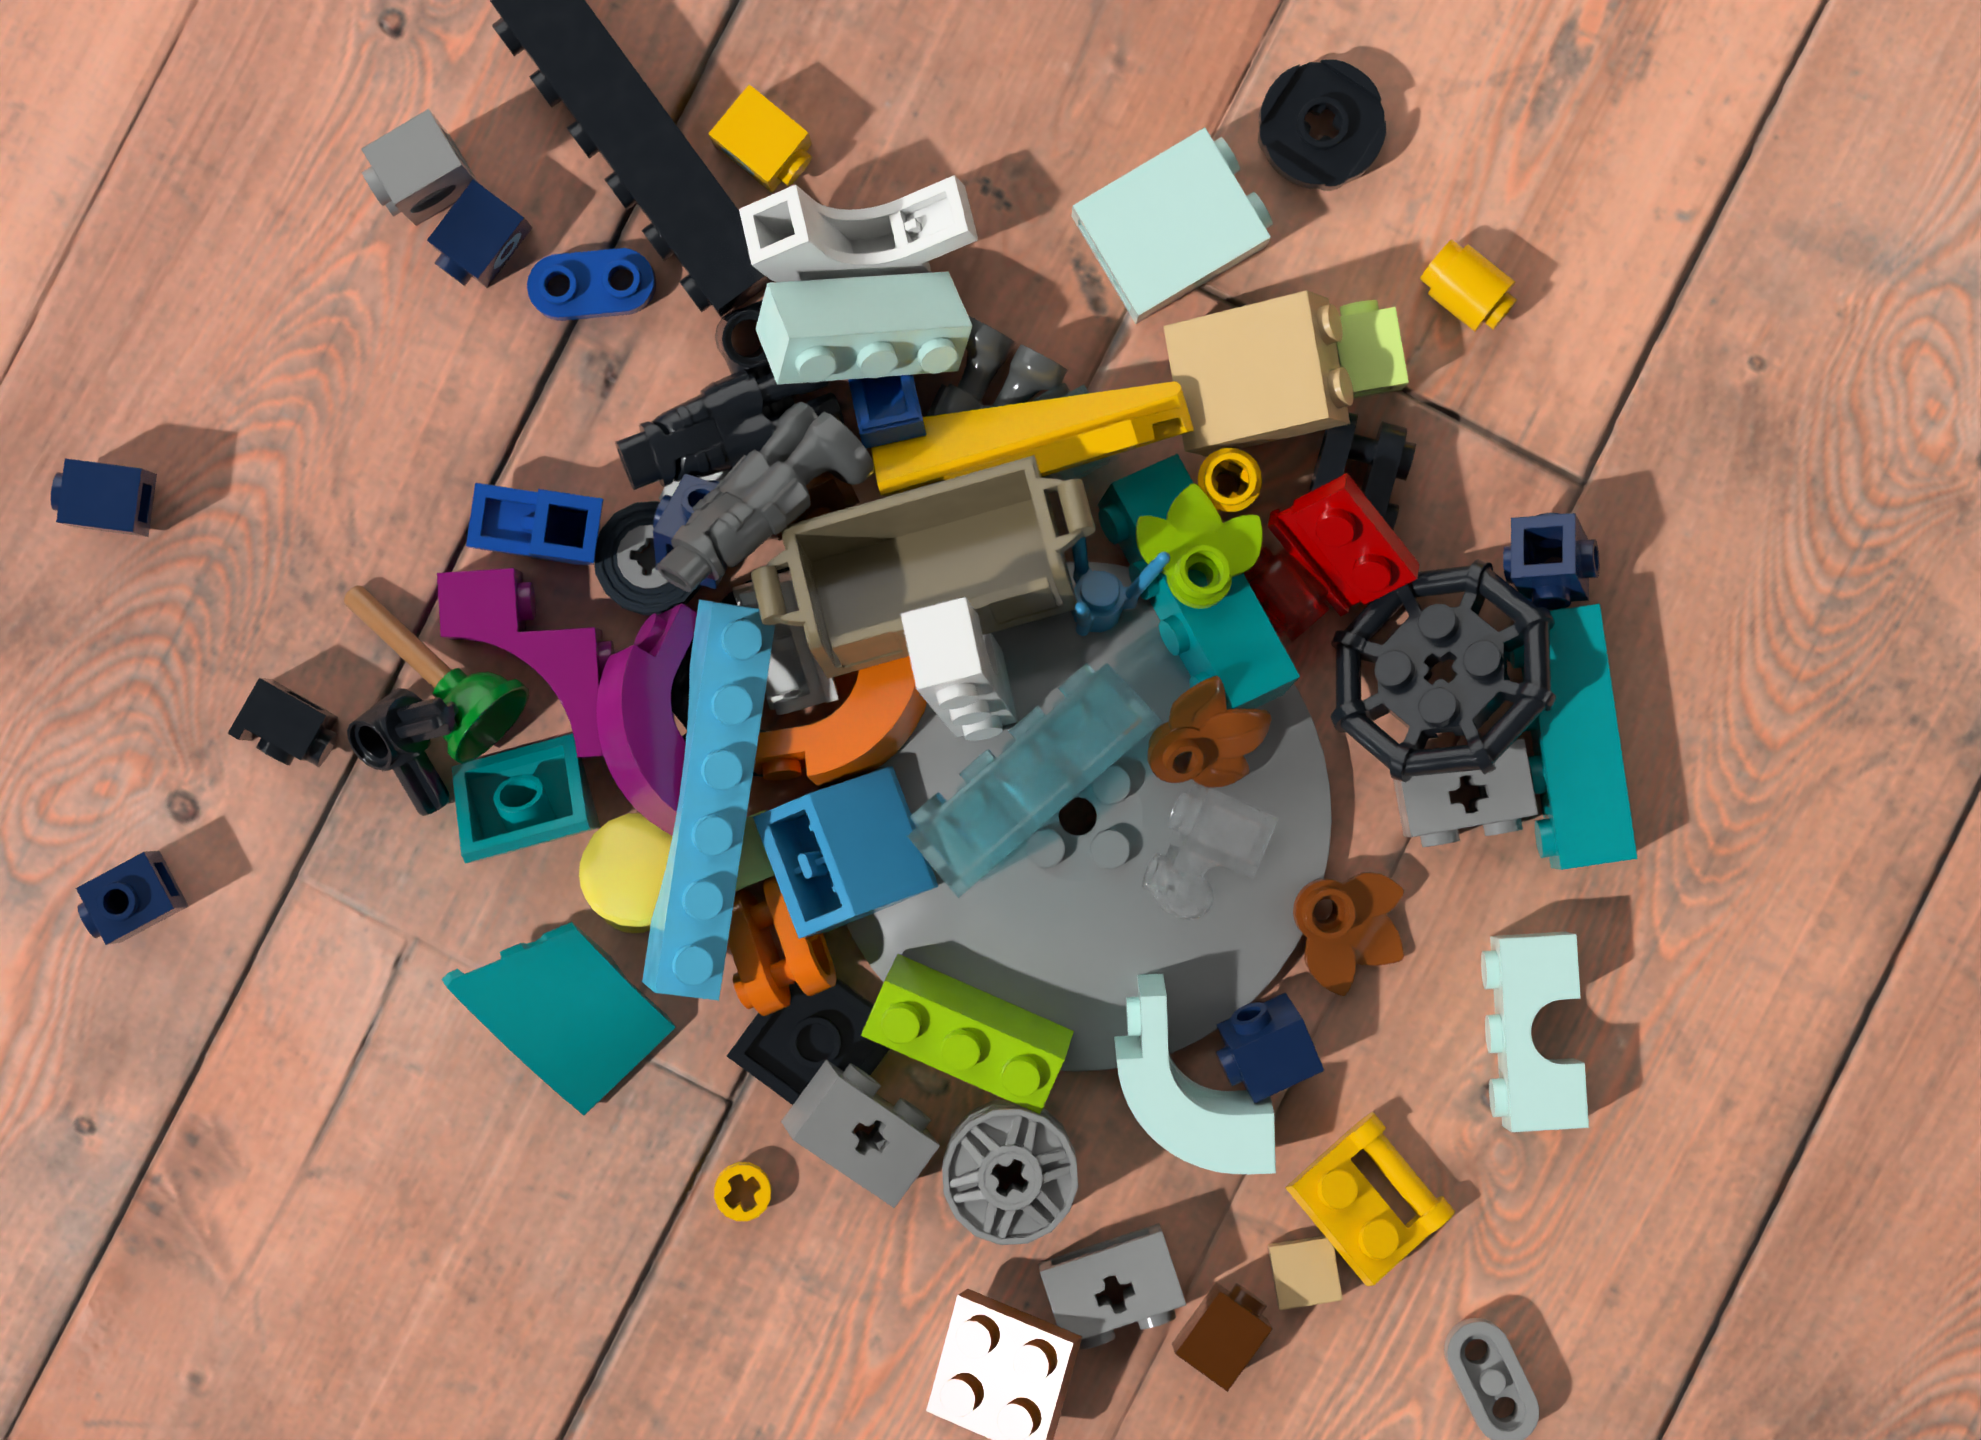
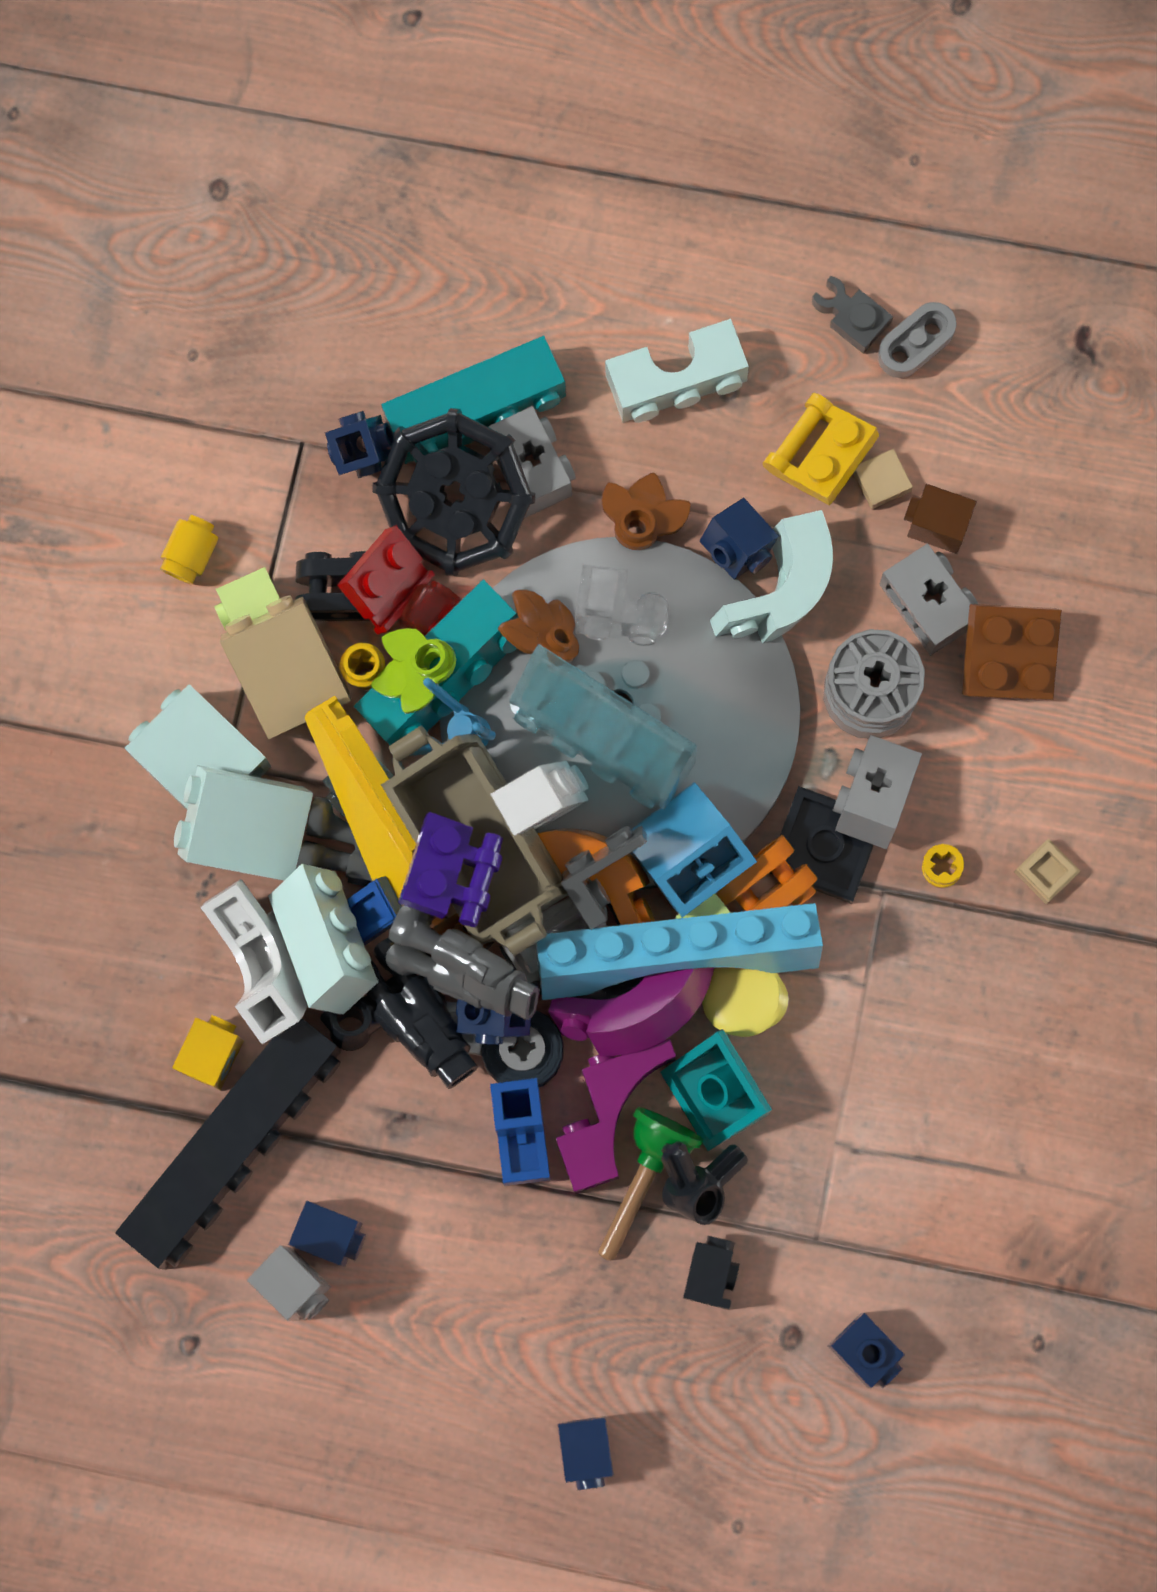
camera: 100 degrees left, 10 degrees down
(564, 1013) = (856, 1017): teal slope -> none
(590, 284) = (341, 1146): blue plate -> none
(696, 1329) = (1047, 871): none -> tan tile
(848, 700) = (591, 896): none -> dark grey bracket
(896, 500) = (437, 864): none -> dark purple plate
(968, 1033) = (788, 735): lime brick -> none
(1052, 261) = (242, 823): none -> light aqua brick
(1358, 118) = (90, 654): black plate -> none
(1548, 1308) = (856, 318): none -> dark grey plate

